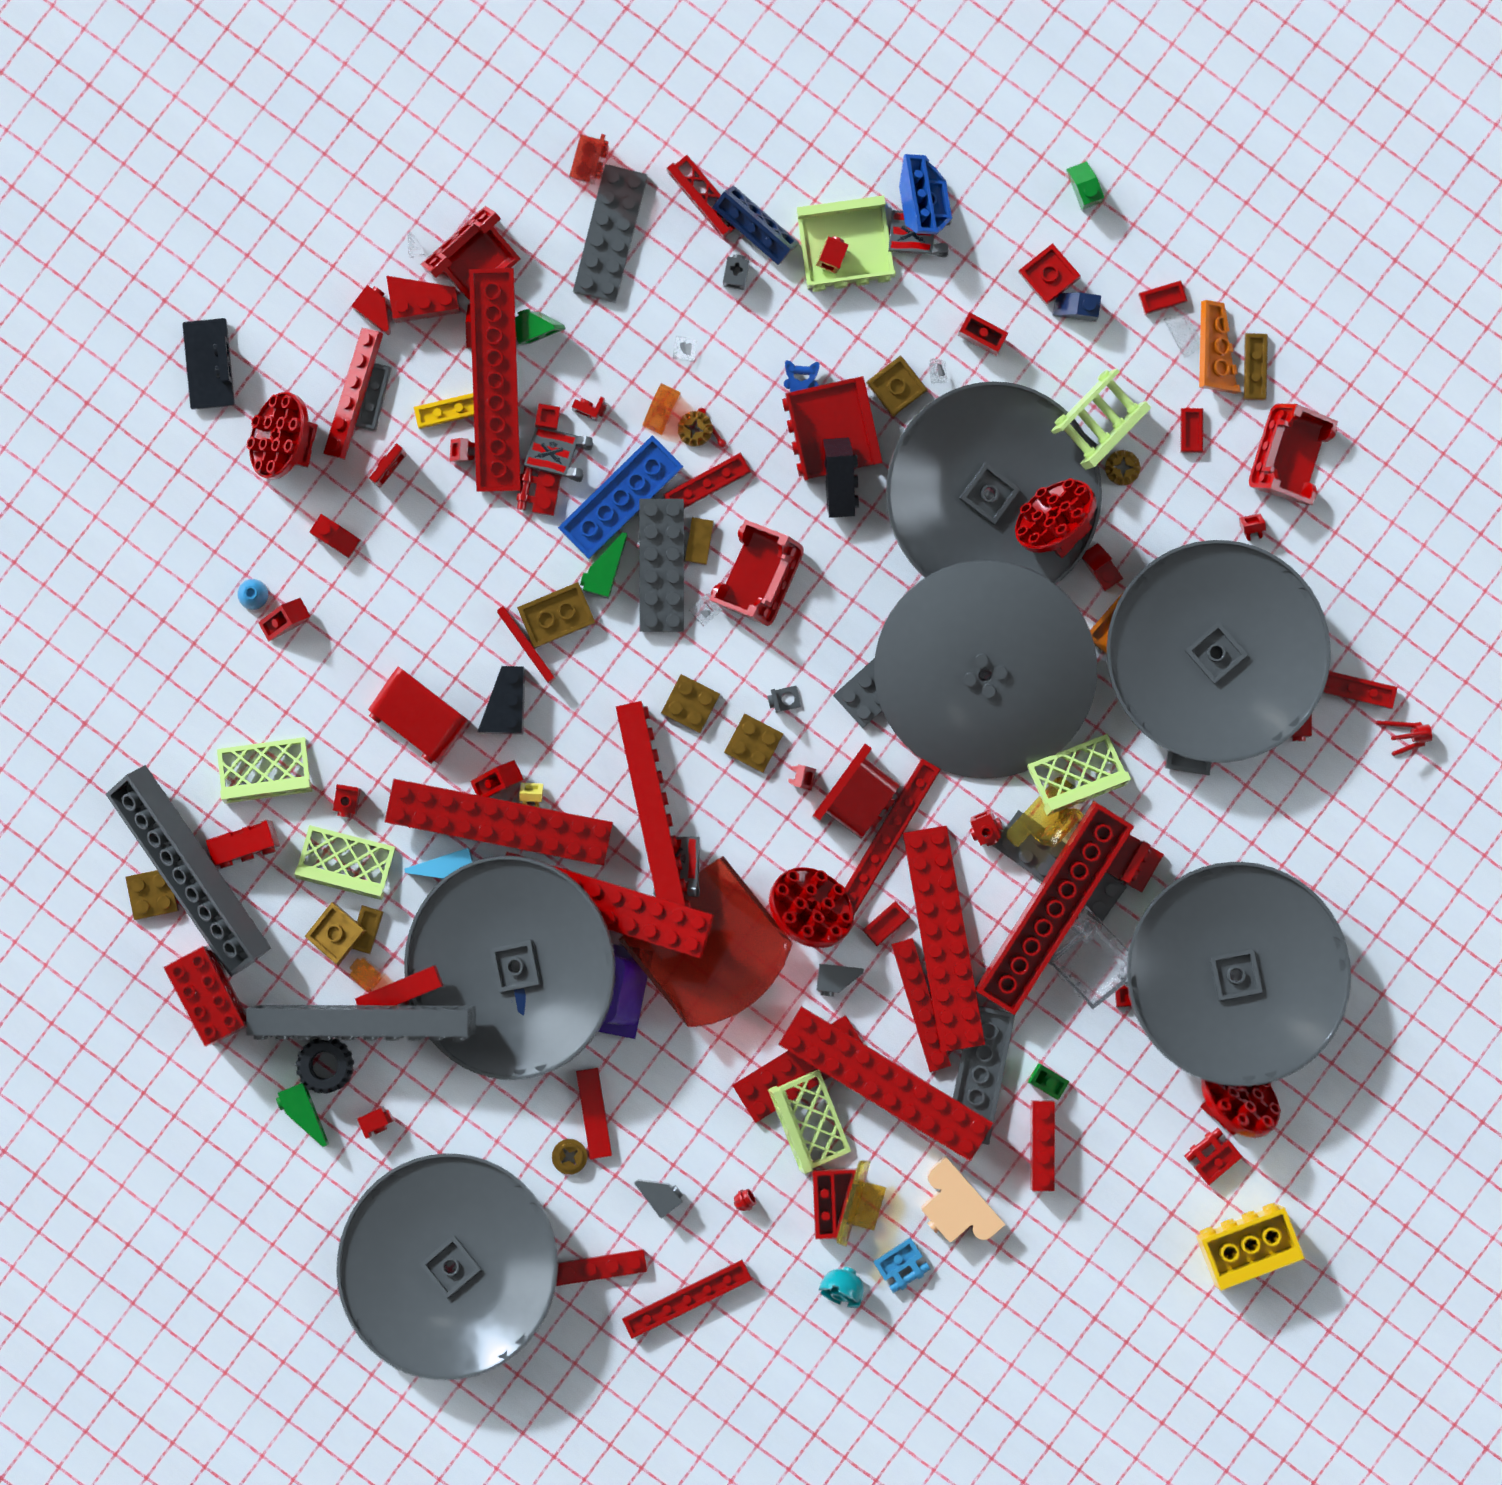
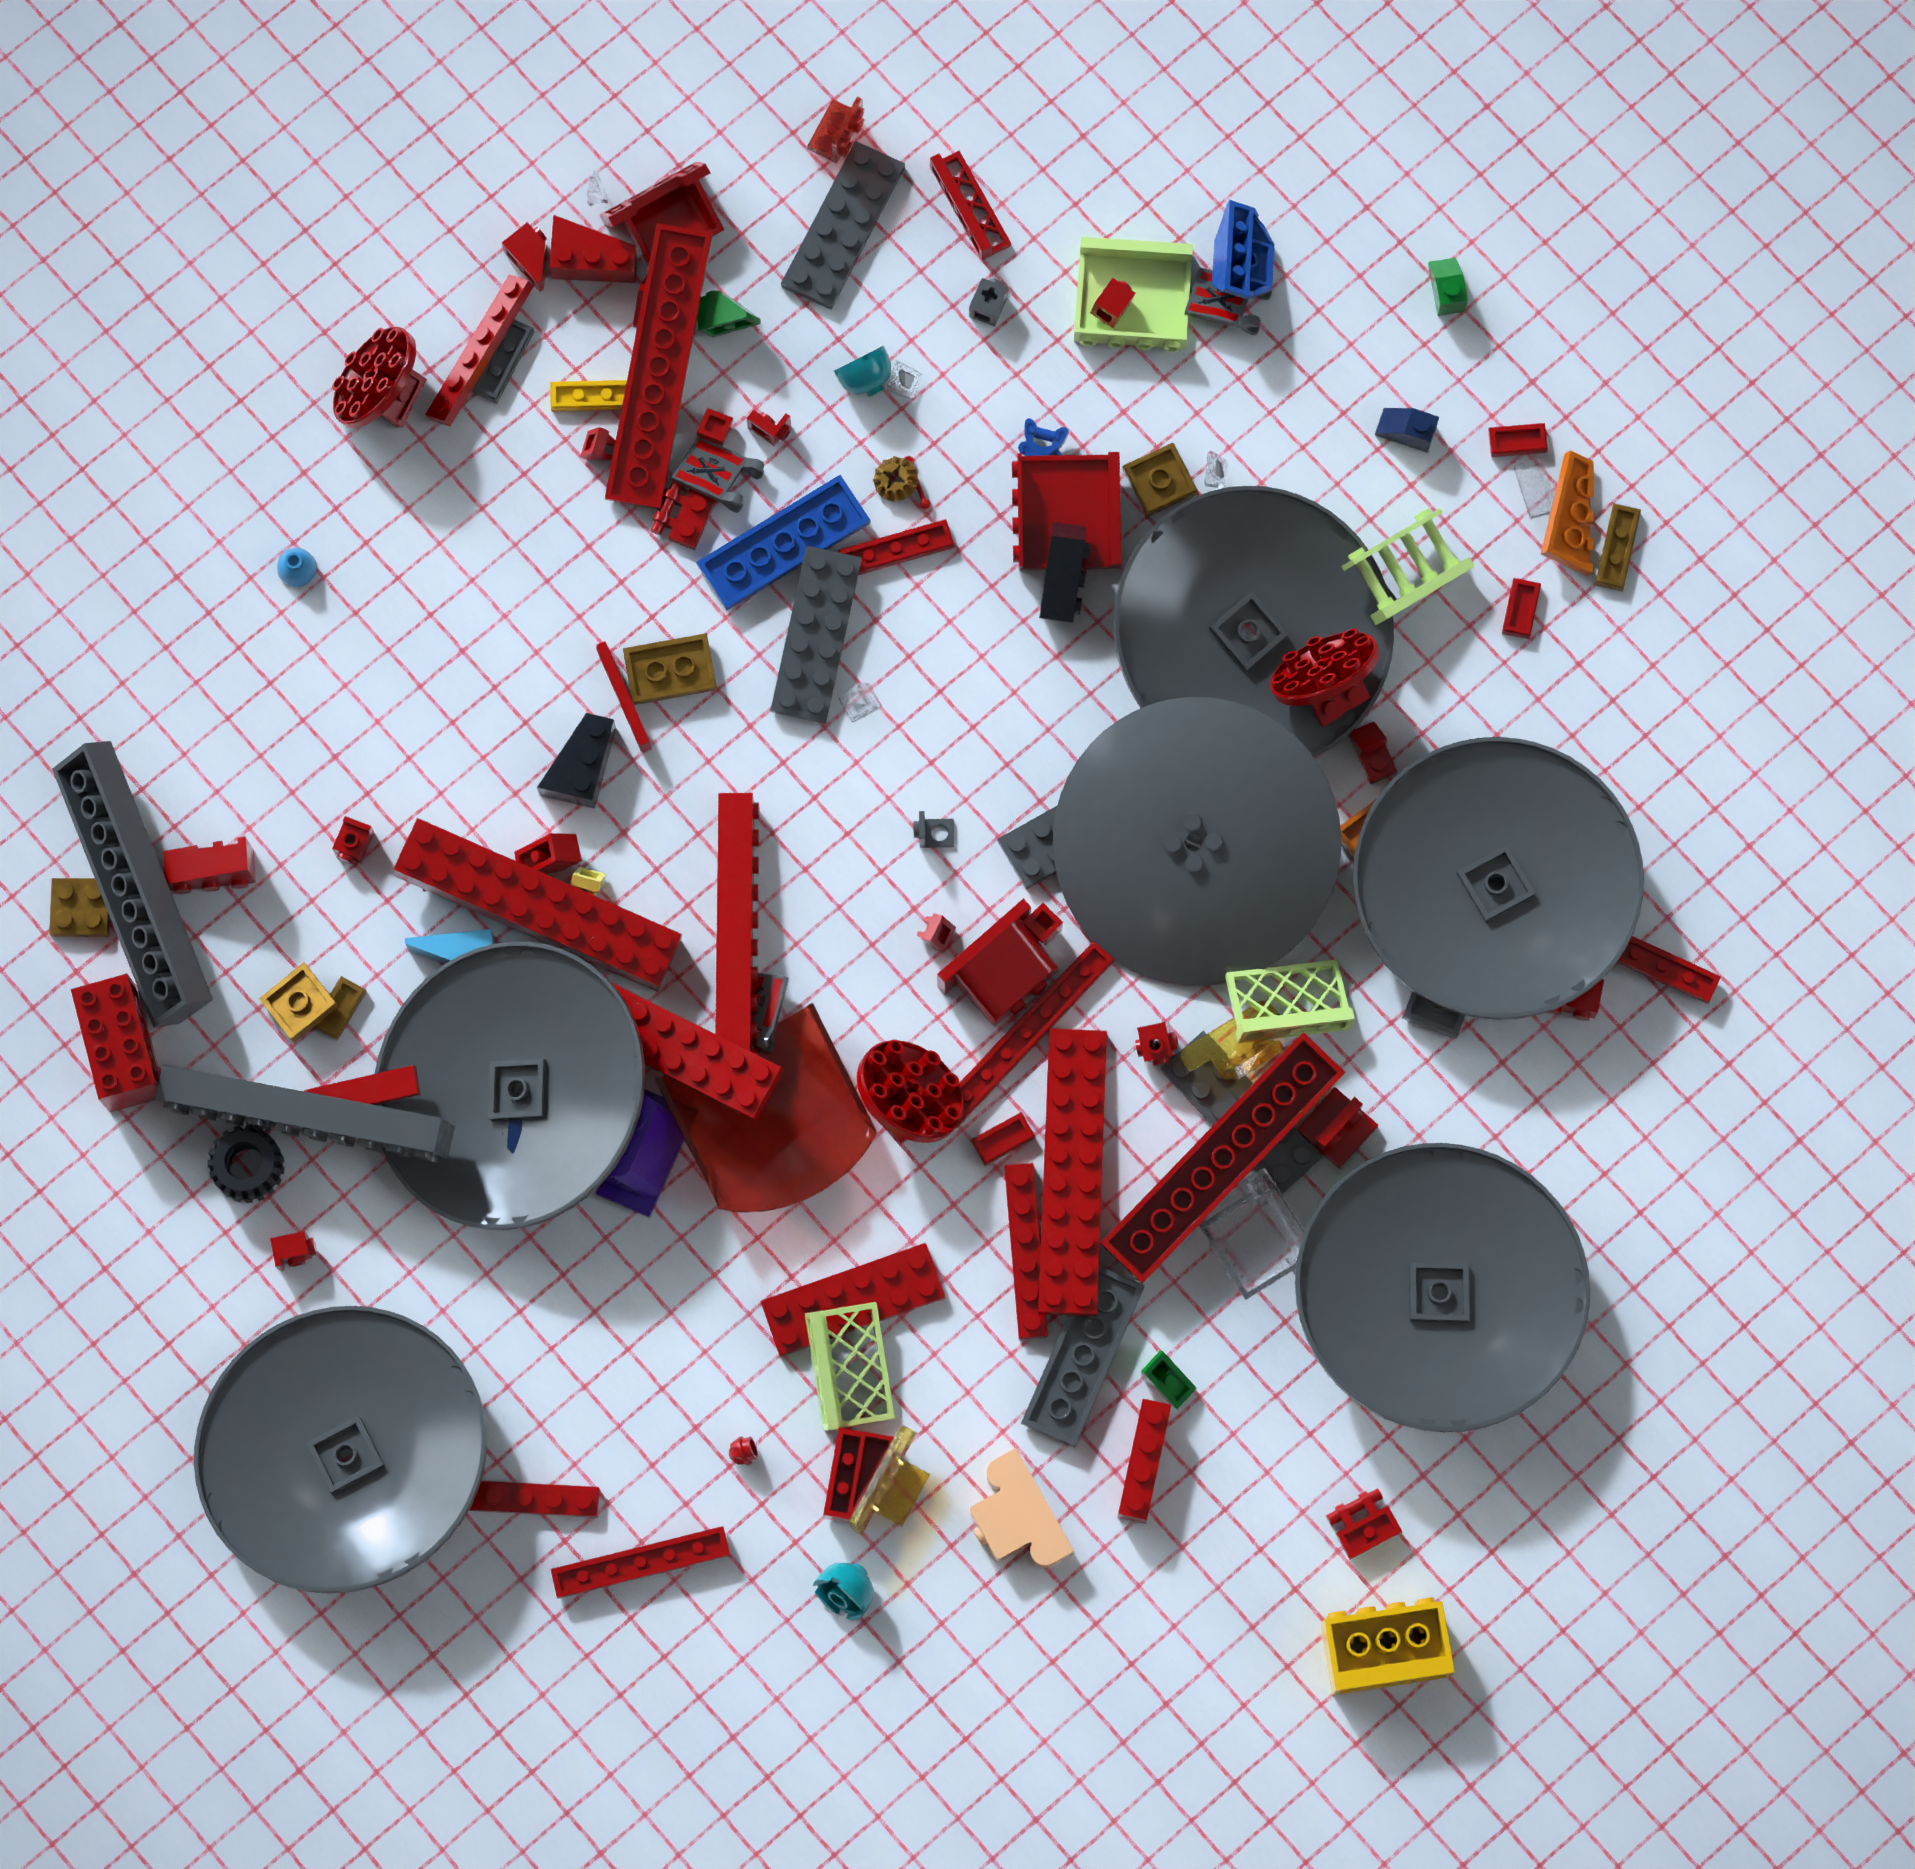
camera: 15 degrees right, 10 degrees down
(208, 363) = (309, 279): black bracket -> none
(264, 789) = (257, 807): yellowish green fence -> none
(284, 619) = (328, 603): red slope -> none
(301, 1109) = (201, 1210): green slope -> none
(334, 535) = (415, 515): red slope -> none
(341, 881) = (321, 940): yellowish green fence -> none
(366, 974) = (326, 1061): clear orange slope -> none
(387, 465) = (501, 442): red plate -> none
(418, 715) = (469, 754): red windscreen -> none
(569, 1167) = (517, 1344): pearl gold gear -> none
(594, 1113) = (575, 1300): red tile -> none
(603, 571) = (741, 627): green slope -> none
(654, 350) = (866, 373): none -> teal cylinder
(660, 1195) = (636, 1422): dark grey slope -> none
(661, 409) = (859, 445): clear orange slope -> none
(690, 703) = (814, 813): pearl gold plate -> none
(699, 541) = (870, 616): pearl gold tile -> none
(753, 743) = (883, 878): pearl gold plate -> none
(755, 224) = (1025, 249): dark blue fence -> none
(759, 574) = (939, 669): red windscreen -> none
(835, 978) = (924, 1192): dark grey slope -> none
(882, 756) = (1043, 924): none -> red brick
(885, 1083) = (957, 1335): red brick -> none
(898, 1259) = (924, 1570): dark azure plate -> none
(982, 334) = (1281, 435): red brick -> none
(1049, 274) = (1380, 381): red plate -> none
(1115, 474) = (1413, 642): pearl gold gear -> none
(1122, 997) = (1287, 1295): red tile -> none
(1242, 1109) = (1412, 1460): red bracket -> none
(1252, 524) = (1575, 737): red tile -> none
(1290, 452) = (1643, 657): red windscreen -> none
(1419, 734) = (1738, 1040): red plant -> none

